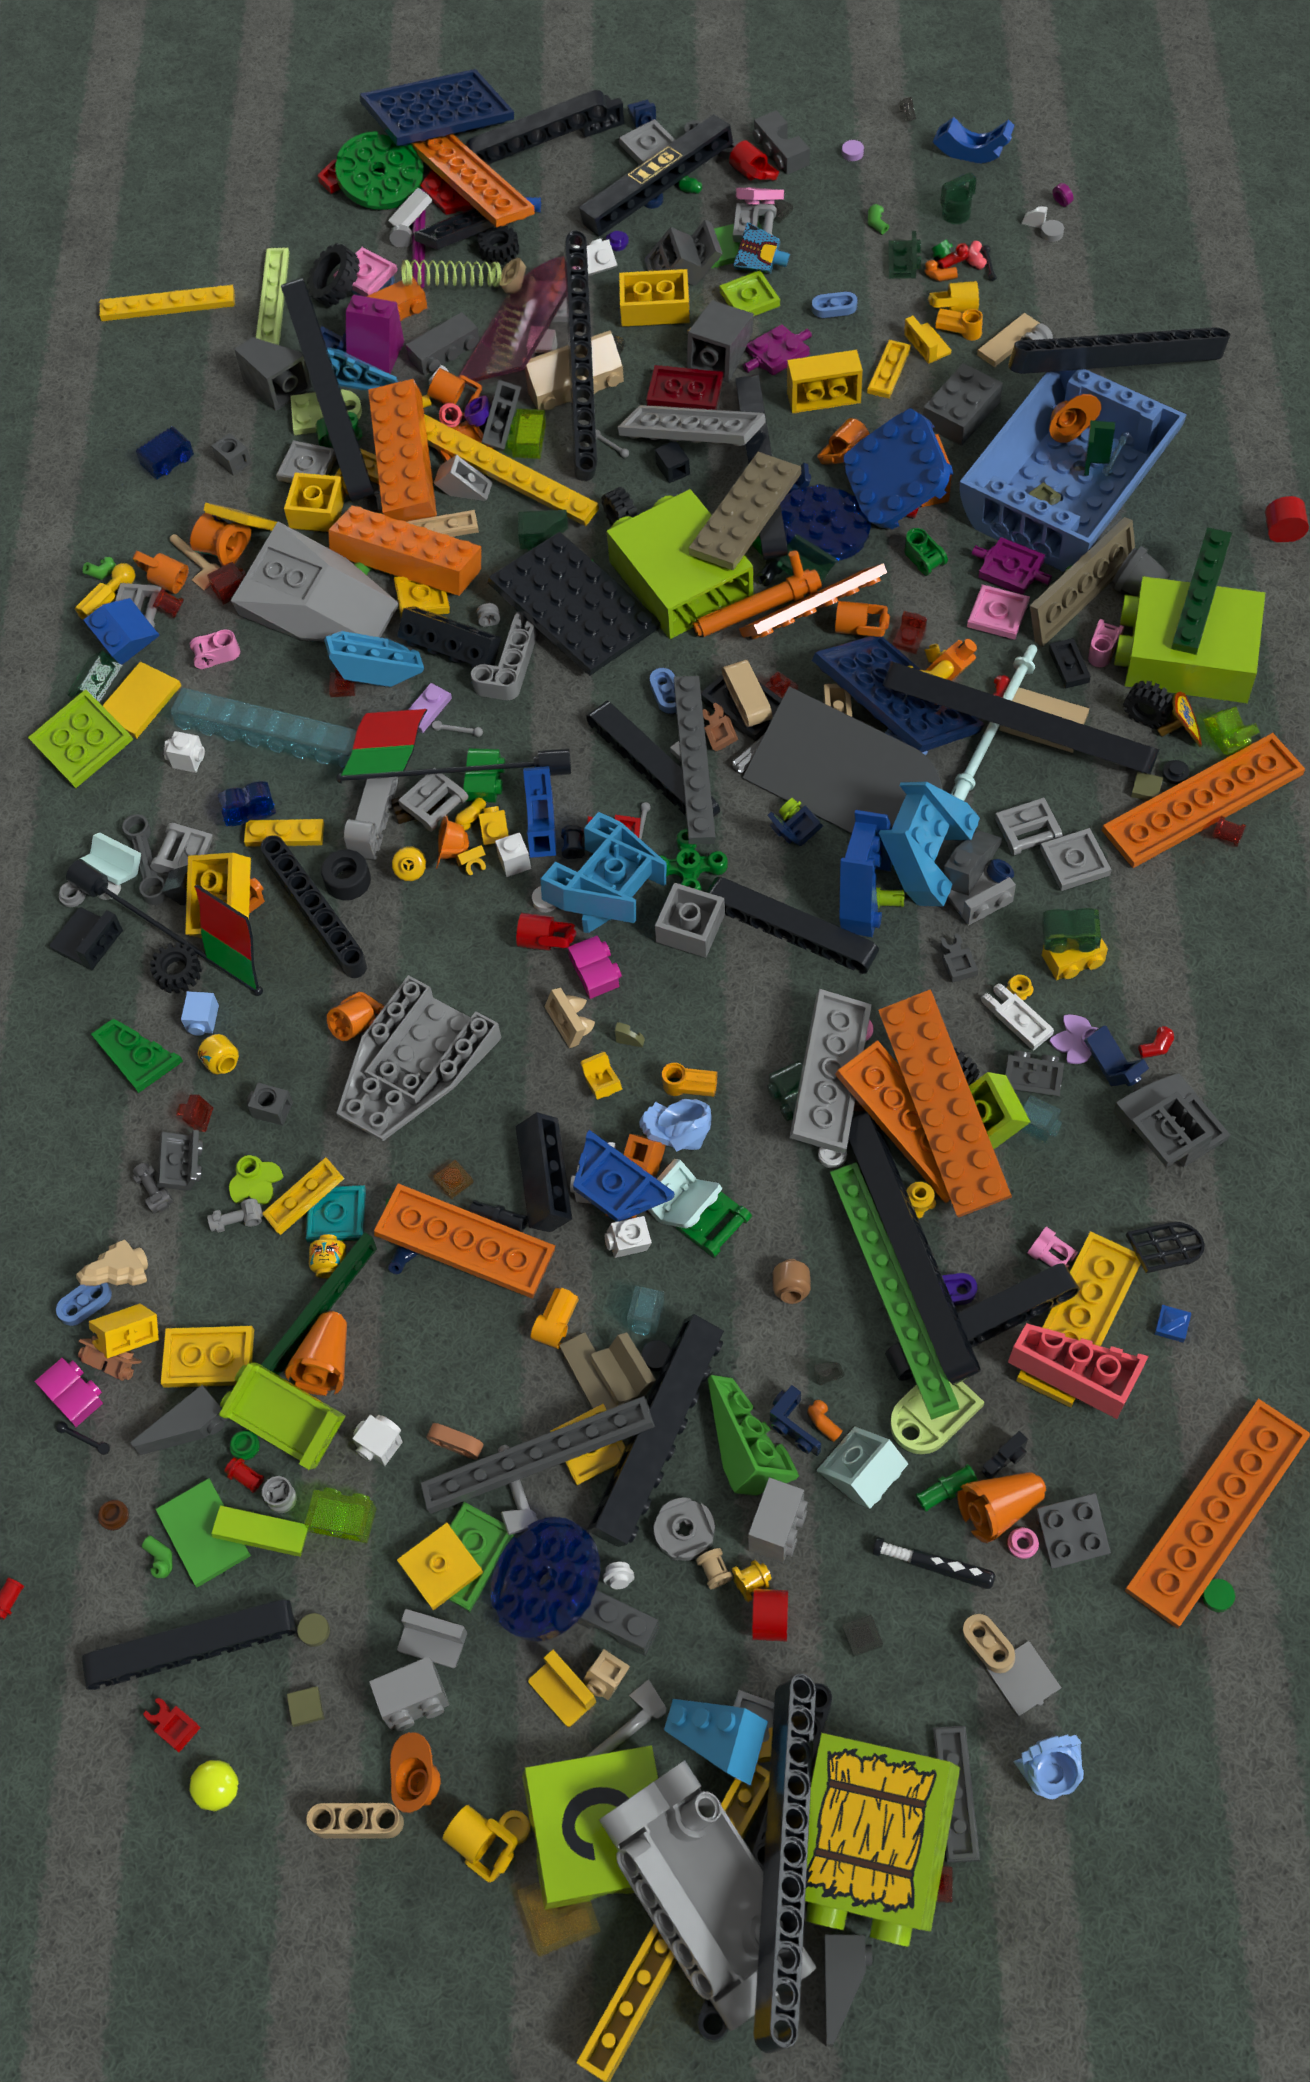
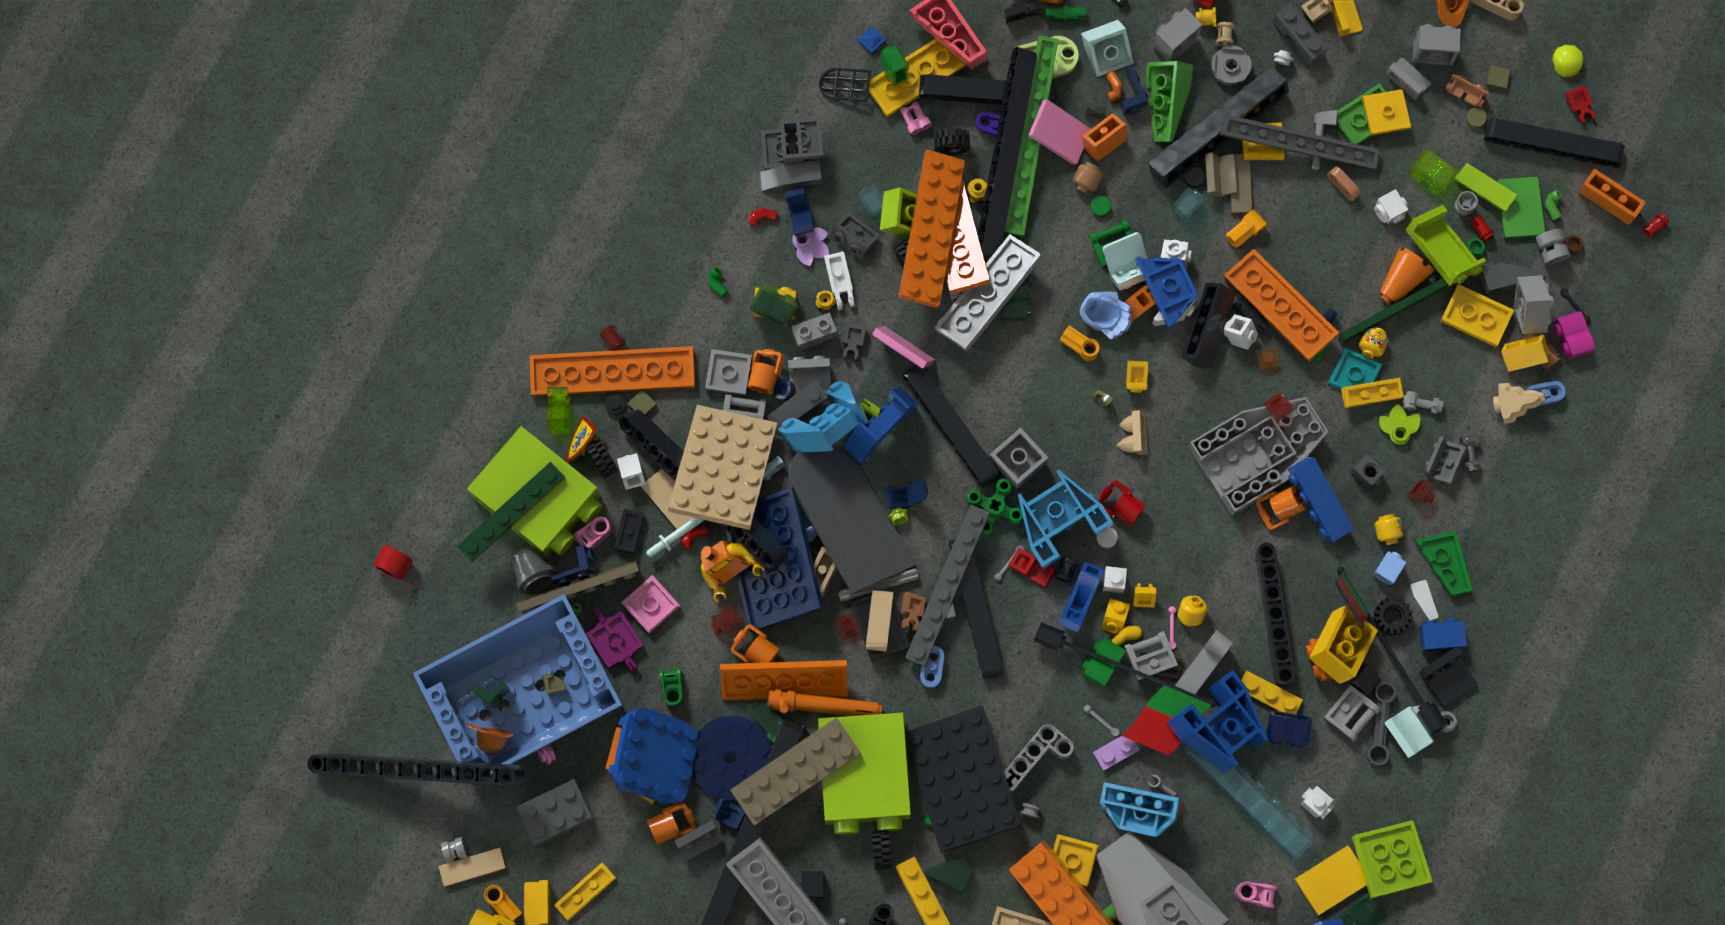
camera: 155 degrees left, 15 degrees up
(79, 1599) = (1611, 197): none -> orange brick
(108, 972) = (1442, 636): none -> blue brick
(135, 1386) = (1533, 304): none -> light grey brick
(137, 1491) = (1550, 240): none -> light grey wheel
(148, 1010) = (1423, 596): none -> white sticker
(313, 1035) = (1320, 499): none -> blue brick
(314, 757) = (1225, 728): none -> blue wedge
(329, 1659) = (1461, 85): none -> nougat hinge
(346, 888) = (1246, 617): black tyre -> none
(369, 703) = (1161, 786): none -> light grey hand
(408, 1102) = (1278, 406): none -> clear red plate
(417, 831) = (1172, 610): none -> bright pink hinge
(448, 637) = (1072, 799): black brick -> none
(451, 840) = (1154, 612): orange piece -> none
(499, 1183) = (1240, 331): none -> white brick
(549, 1609) = (1348, 63): clear blue plate -> none
(594, 966) = (1101, 462): dark pink brick -> none
(756, 1259) = (1100, 206): none -> green tile
(797, 1338) = (1105, 137): none -> orange brick
(810, 443) = (698, 841): none -> dark grey bracket
(824, 381) = (650, 892): yellow brick -> none
(858, 1311) = (1059, 132): none -> bright pink tile
(893, 968) = (903, 347): none -> bright pink tile
(987, 1232) = (951, 141): none -> black tyre
(1008, 942) = (814, 331): none -> light grey brick
(1011, 740) = (722, 467): none -> tan plate
(1033, 872) = (764, 376): none -> orange piece
(1091, 597) = (587, 567): none -> dark blue bracket
(1109, 712) = (631, 471): none -> white brick
(1120, 1278) = (894, 64): none -> green brick
(1158, 945) = (714, 282): none -> green arm

